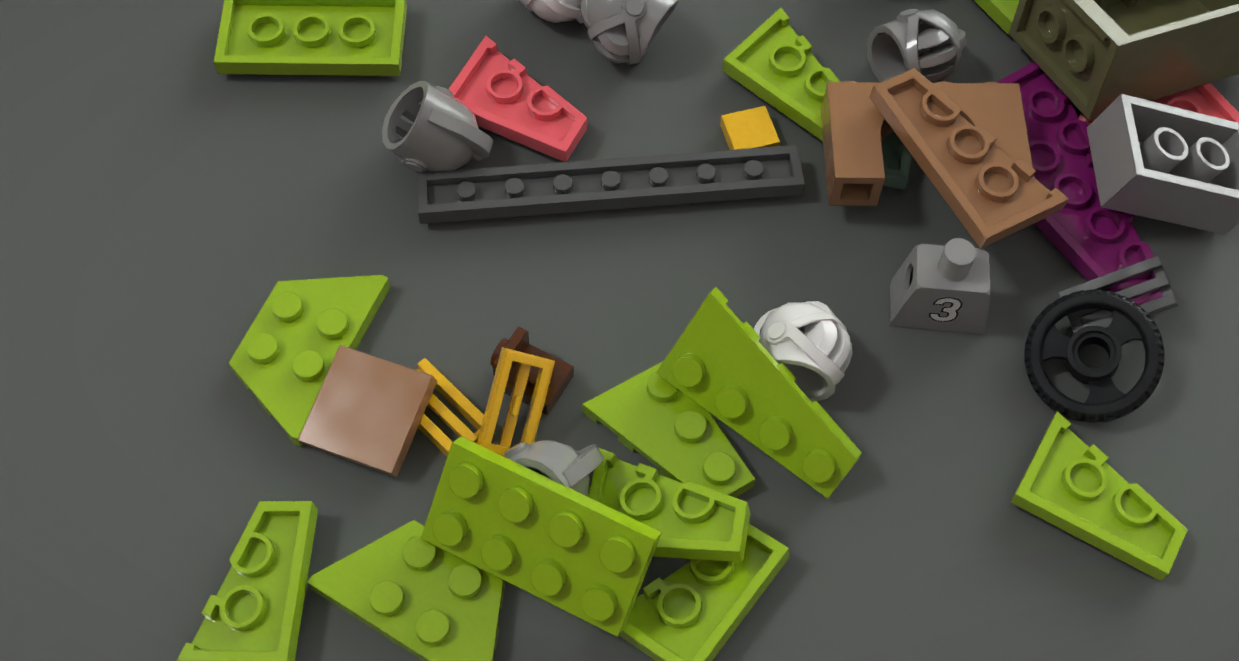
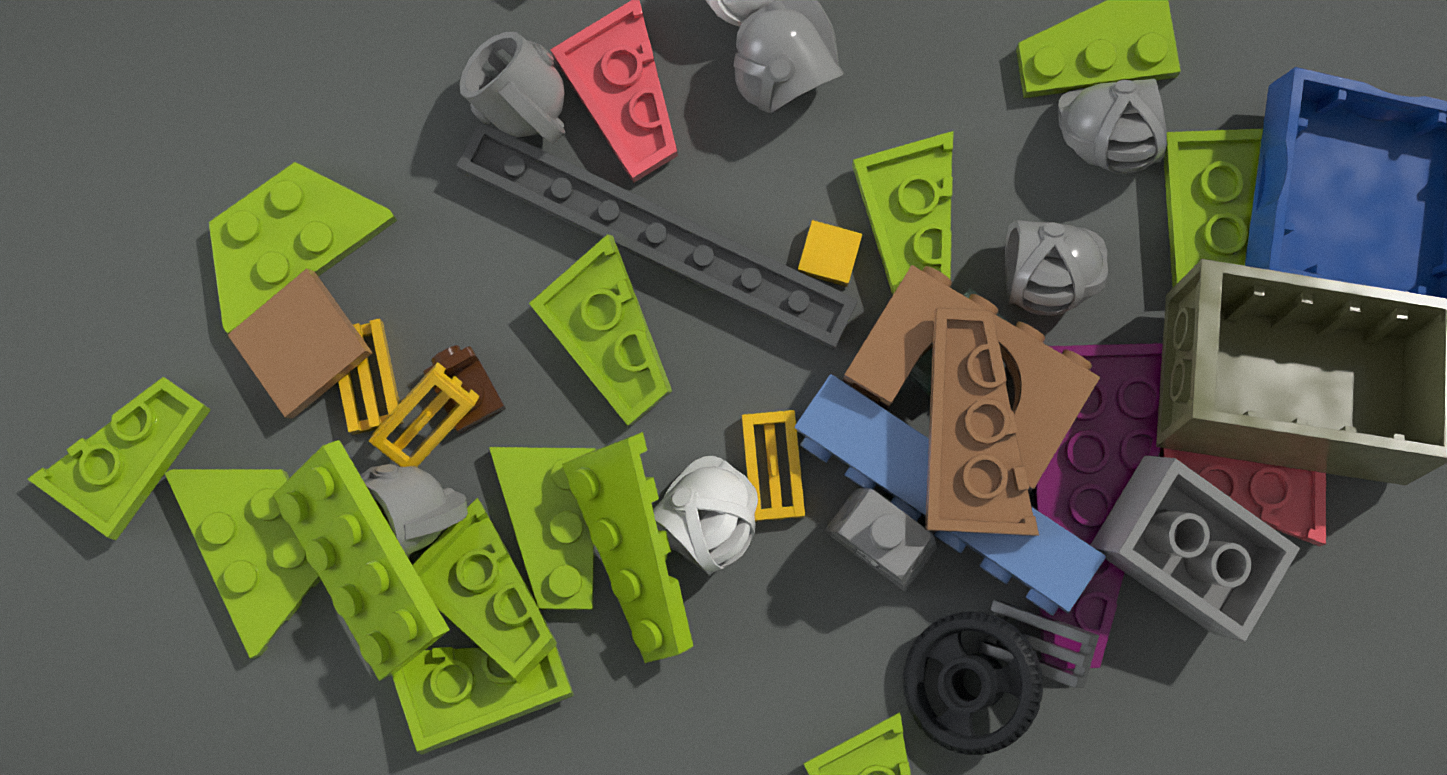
camera: 35 degrees right, 20 degrees up
(618, 268) = (605, 331): none -> lime wing
(825, 279) = (768, 419): none -> yellow tile
(885, 227) = (895, 458): none -> medium blue brick

